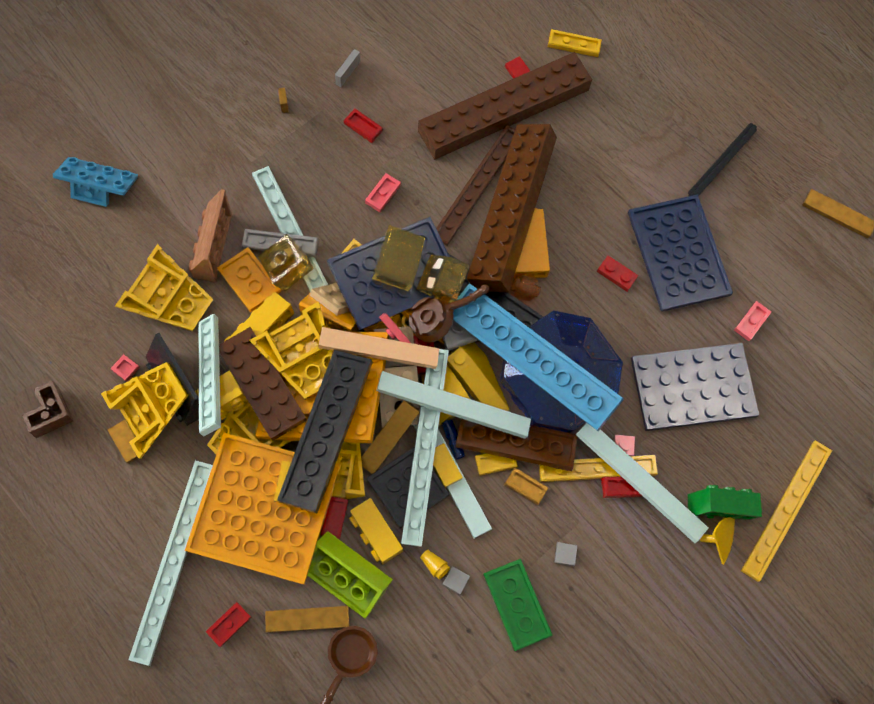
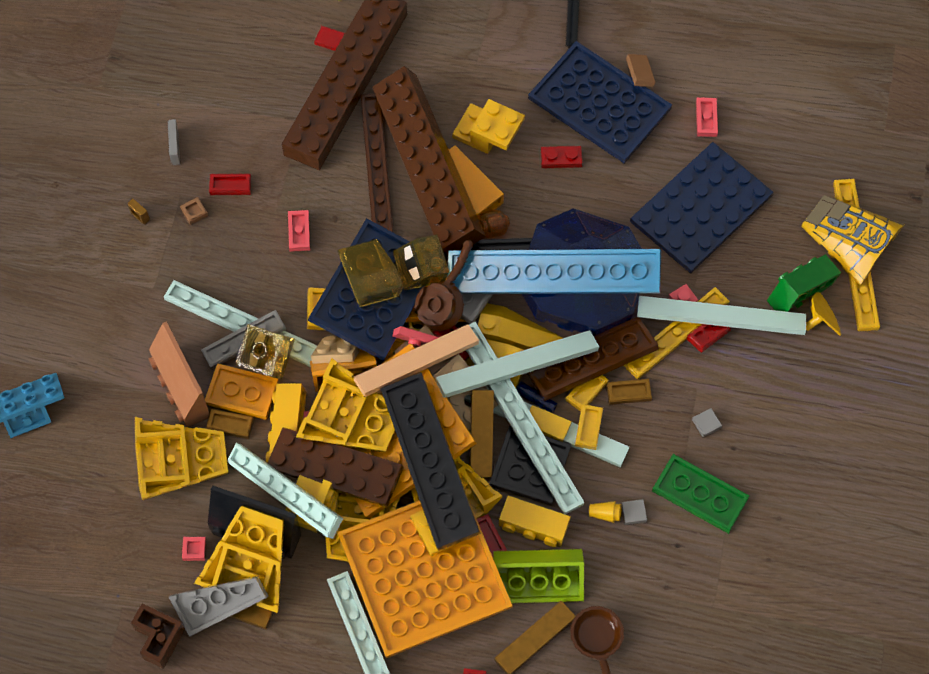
camera: 30 degrees left, 5 degrees down
(101, 418) = (211, 604): none -> light grey wing
(223, 296) = (230, 423): none -> pearl gold tile
(322, 127) = (193, 211): none -> medium nougat tile
(473, 491) = (589, 427): none -> yellow tile
(579, 212) = (488, 126): none -> yellow bracket
(729, 250) = (640, 70): none -> medium nougat tile
(794, 492) = (851, 234): none -> wedge

